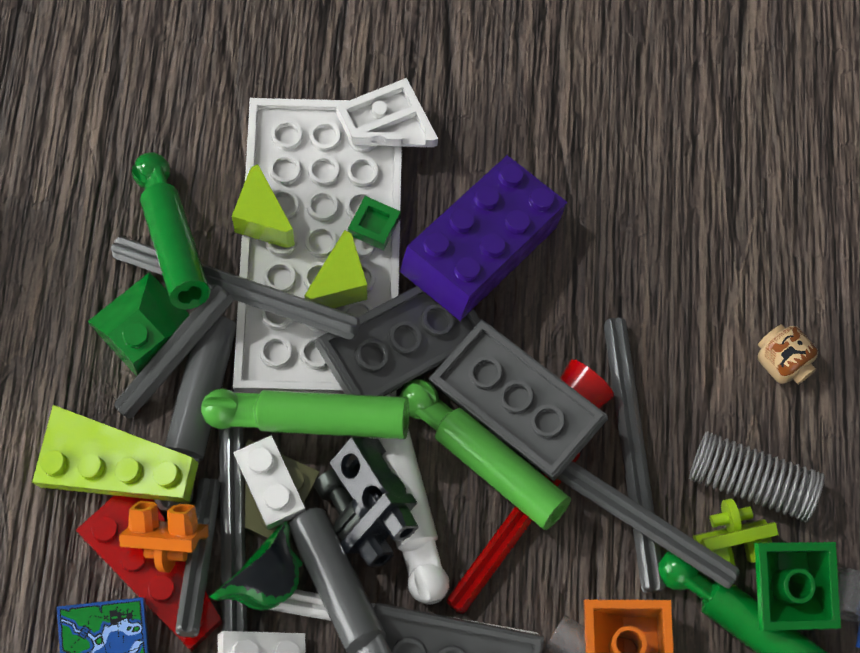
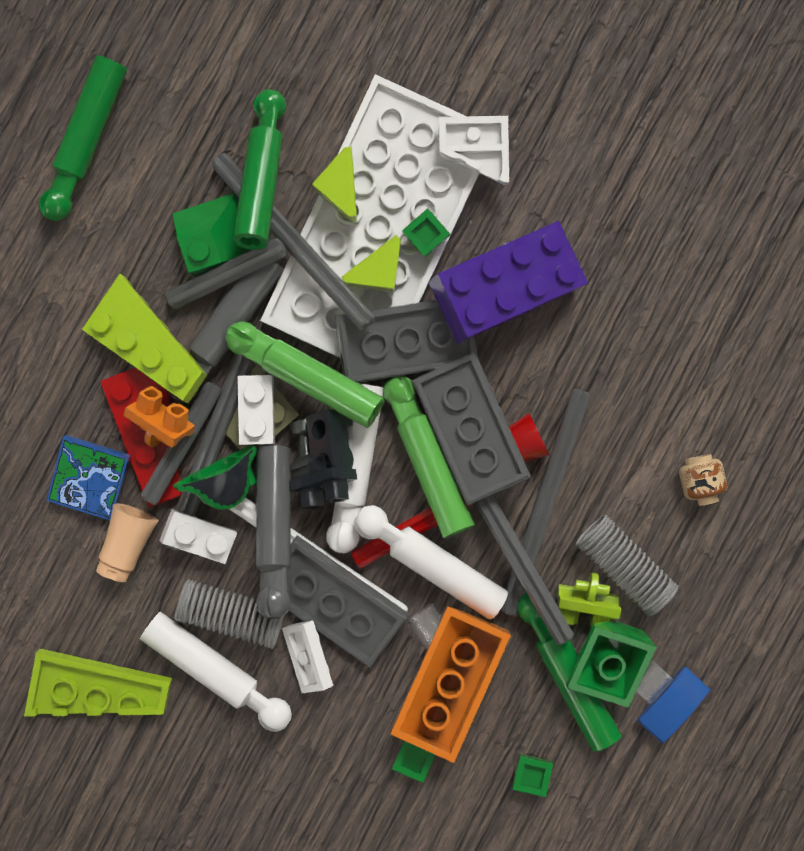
camera: 30 degrees right, 20 degrees up
(542, 563) = (433, 562): none -> white piece

